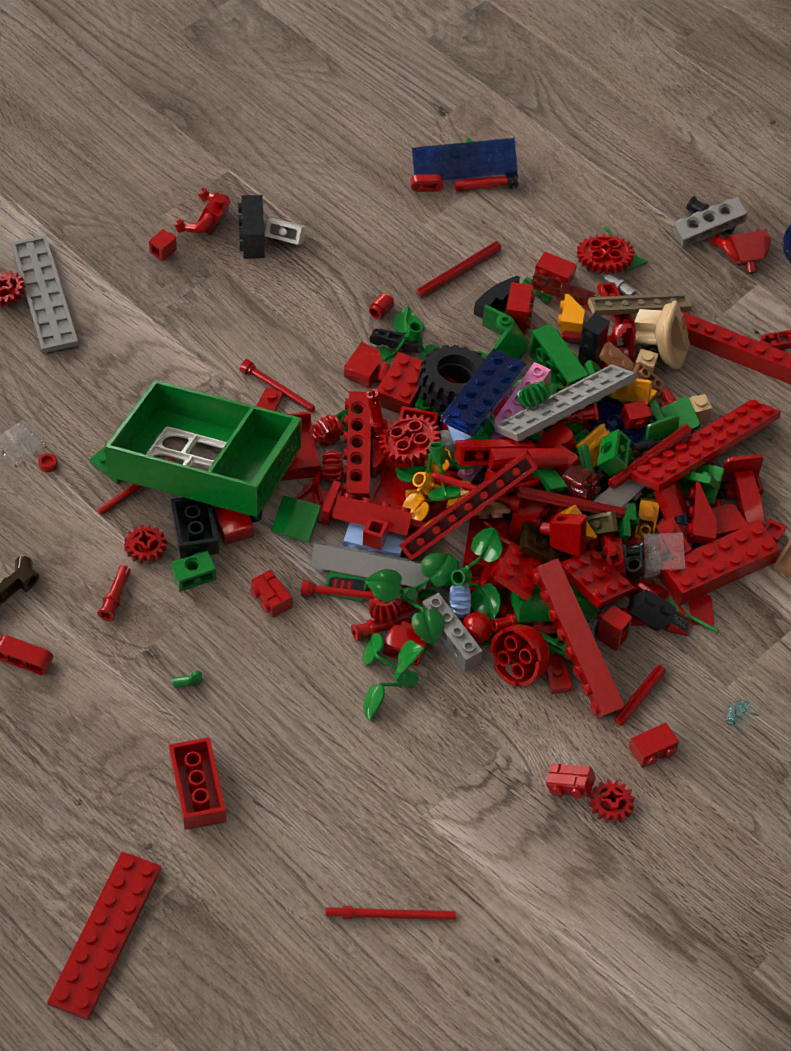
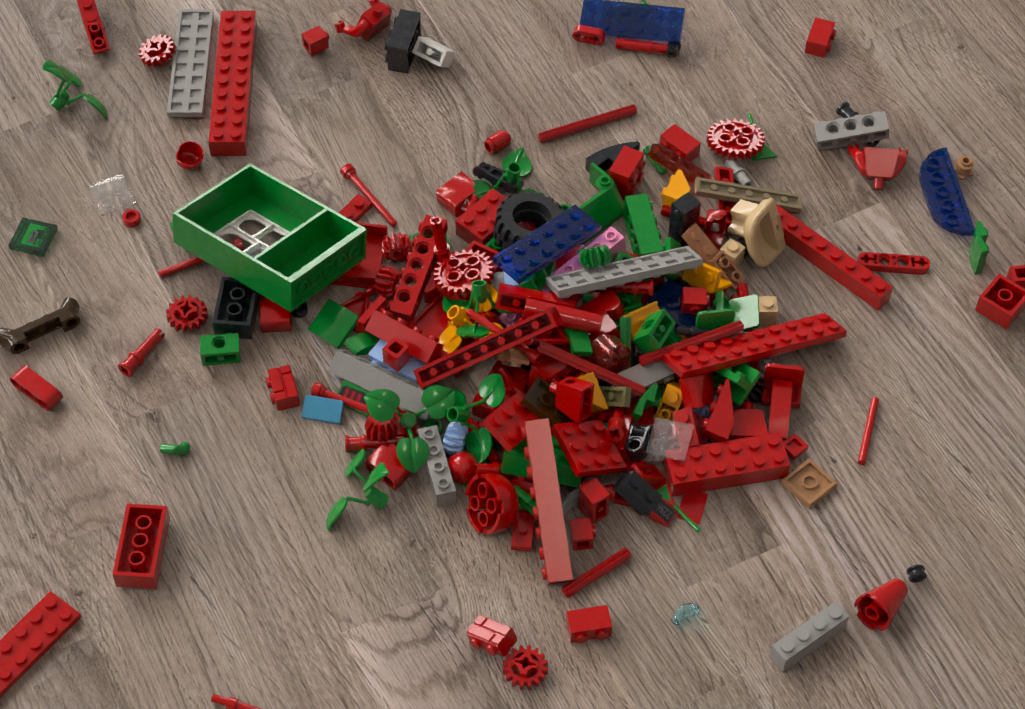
camera: 20 degrees right, 0 degrees up
(83, 386) = (189, 155): none -> red hair
(97, 305) = (233, 84): none -> red brick
(318, 605) = (323, 409): none -> dark azure slope
(333, 531) = (361, 343): none -> green slope
(615, 660) = (582, 533): none -> red brick
(644, 140) = (820, 37): none -> red brick

